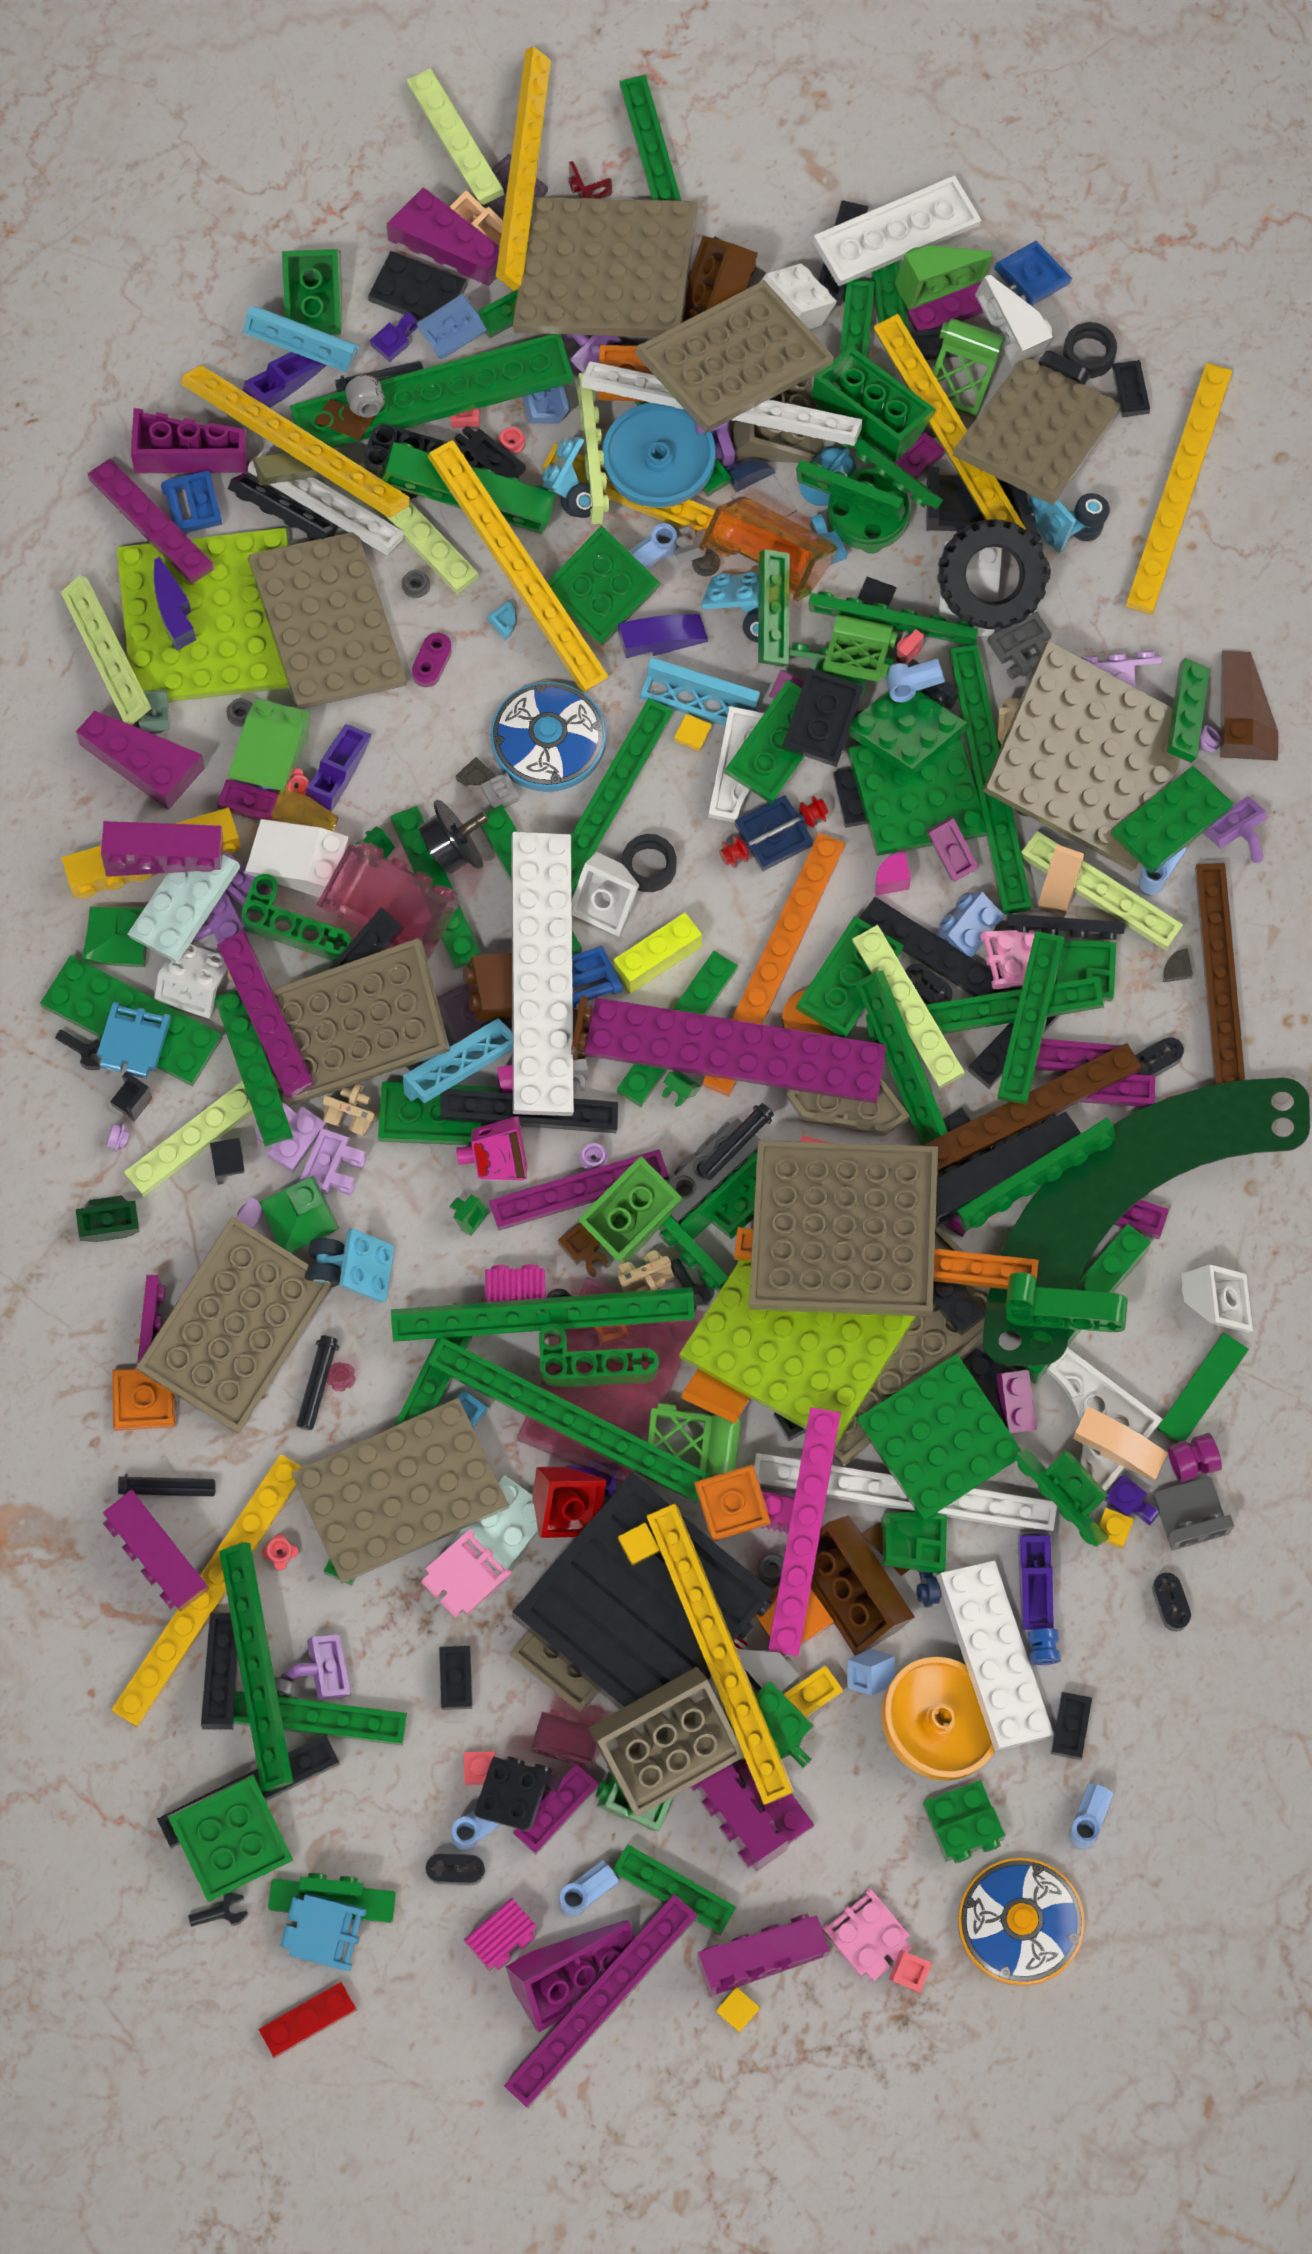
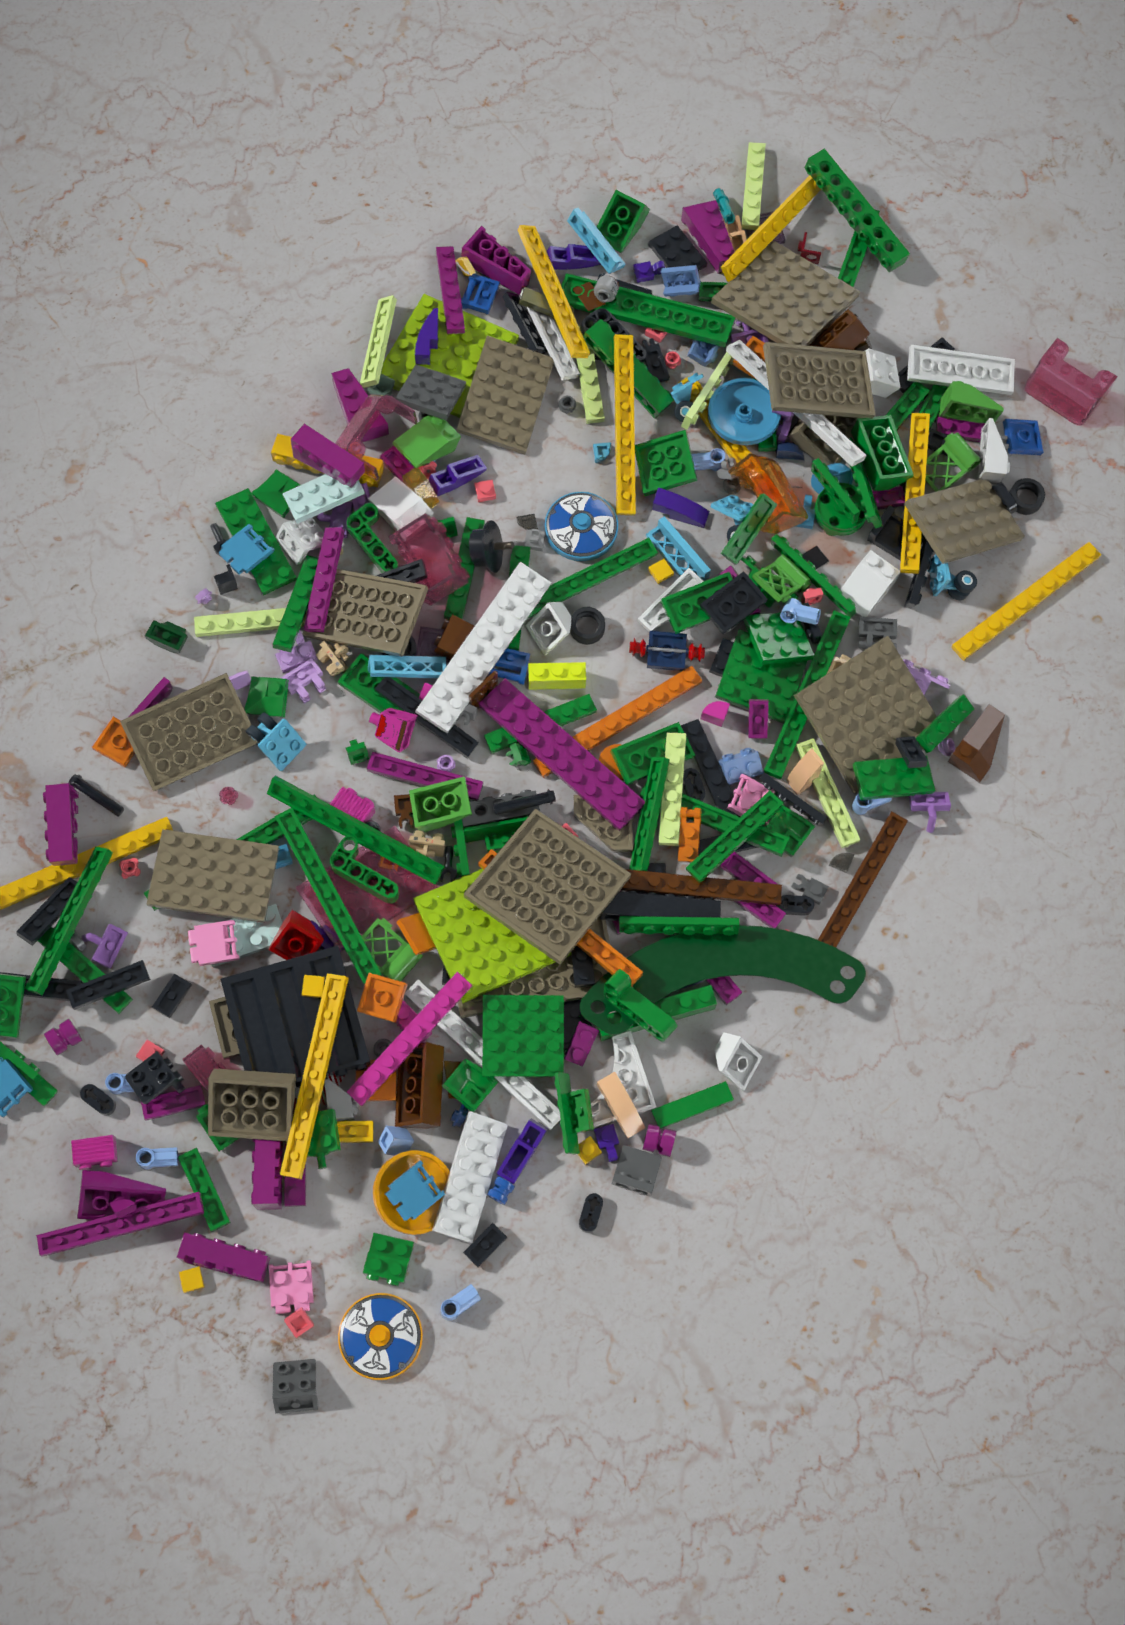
camera: 30 degrees right, 0 degrees up
(148, 476) = (465, 266): none -> yellow tile
(170, 770) = (362, 421): none -> clear pink windscreen
(227, 1158) = (250, 642): black panel -> none
(229, 677) = (431, 392): none -> dark grey plate
(317, 1381) = (211, 792): black axle -> none
(355, 1817) = (64, 1036): none -> magenta wheel
(367, 1715) = (108, 985): none -> black plate
(388, 766) = (485, 490): none -> coral plate
(433, 658) = (549, 449): magenta plate -> none
(438, 188) = (723, 204): none -> teal pin
(591, 1977) = (123, 1207): none -> magenta tile
(611, 81) = (856, 210): none -> green brick
(944, 1717) = (413, 1192): none -> dark azure plate
(960, 2050) = (294, 1386): none -> dark grey bracket
(970, 1053) = (689, 835): none -> orange plate
(1031, 581) = (856, 581): black tyre -> none
(1044, 175) = (1067, 388): none -> clear pink windscreen
(1131, 388) = (1035, 530): black plate -> none
(1165, 1024) = (812, 889): none -> dark grey plate
(1174, 773) = (911, 752): none -> black plate

